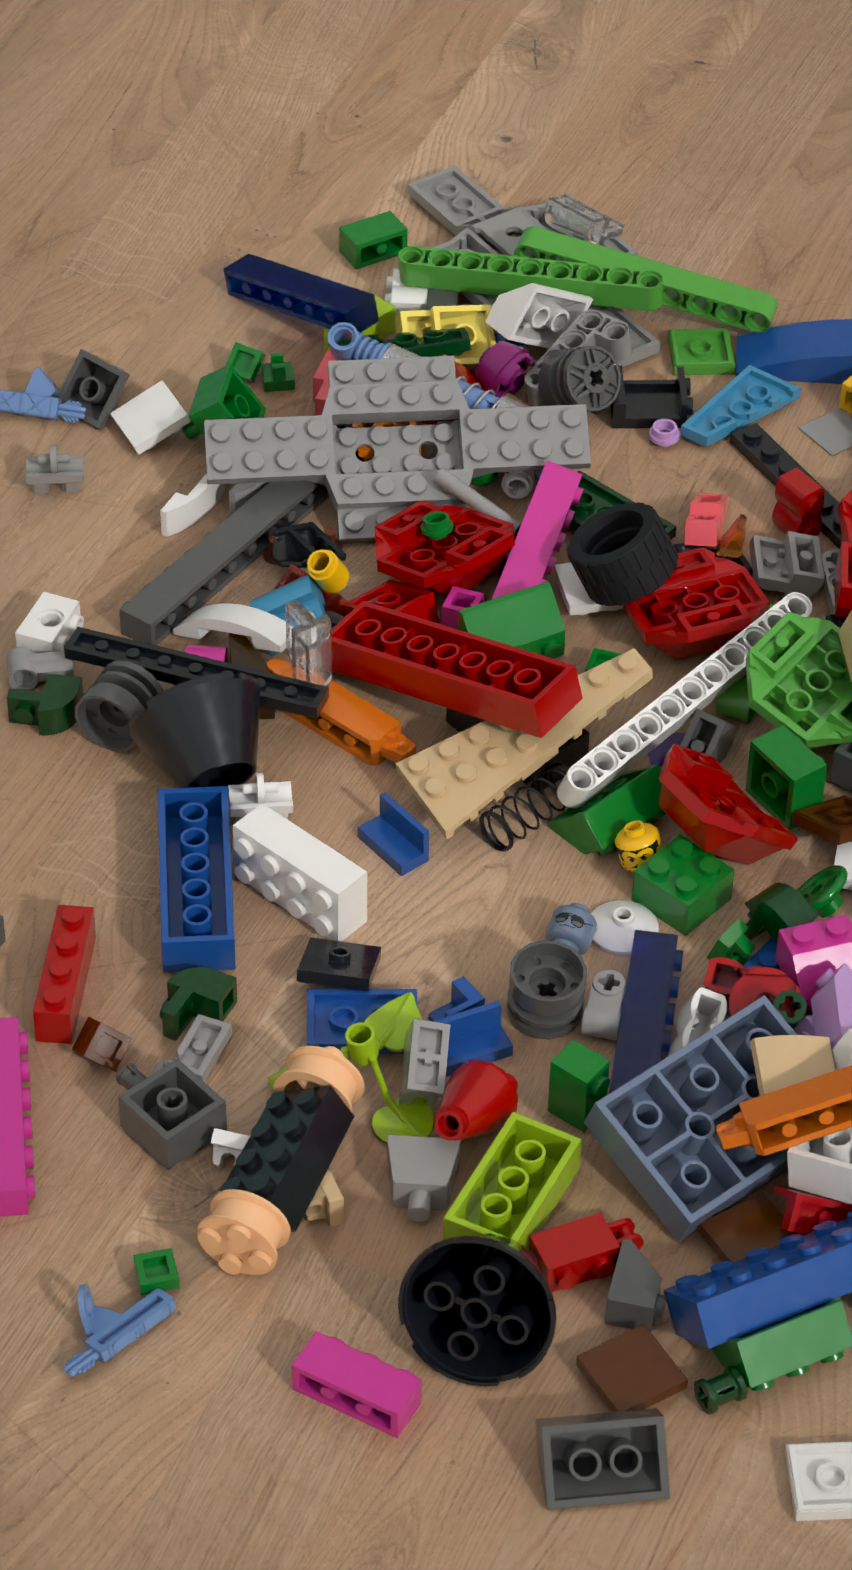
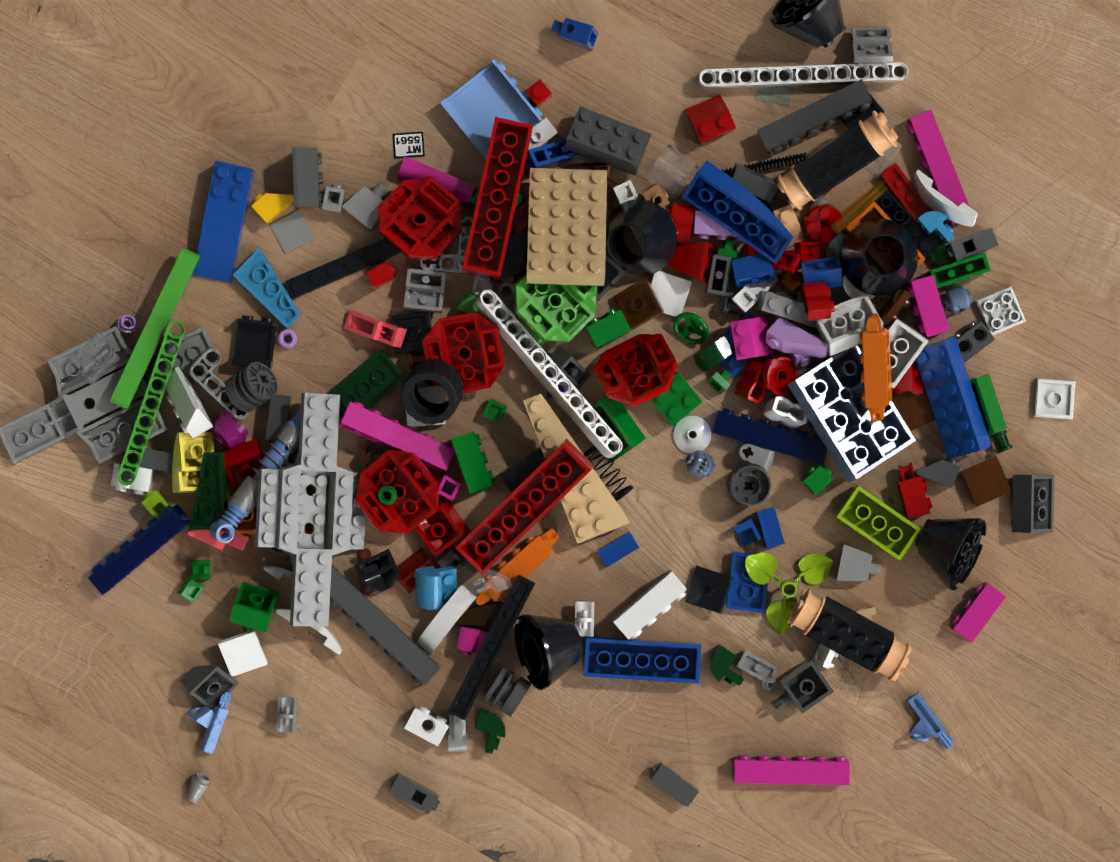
camera: 85 degrees left, 45 degrees up
(64, 974) = (700, 733): red brick -> none
(101, 1044) = (748, 717): reddish brown panel -> none
(156, 1271) = (898, 700): green plate -> none
(327, 571) = (422, 564): yellow brick -> none
(372, 239) = (70, 493): green brick -> none
(424, 1061) = (795, 556): light grey hinge -> none
(472, 497) = (361, 467): light grey piece -> none
(476, 1101) = (826, 536): red cone -> none
(637, 844) = (647, 418): yellow head -> none
(701, 351) = (206, 300): bright green tile -> none
(734, 539) = (403, 319): clear orange slope -> none
(790, 1060) = (842, 373): tan slope -> none
(795, 1000) = (795, 367): dark green bush -> none

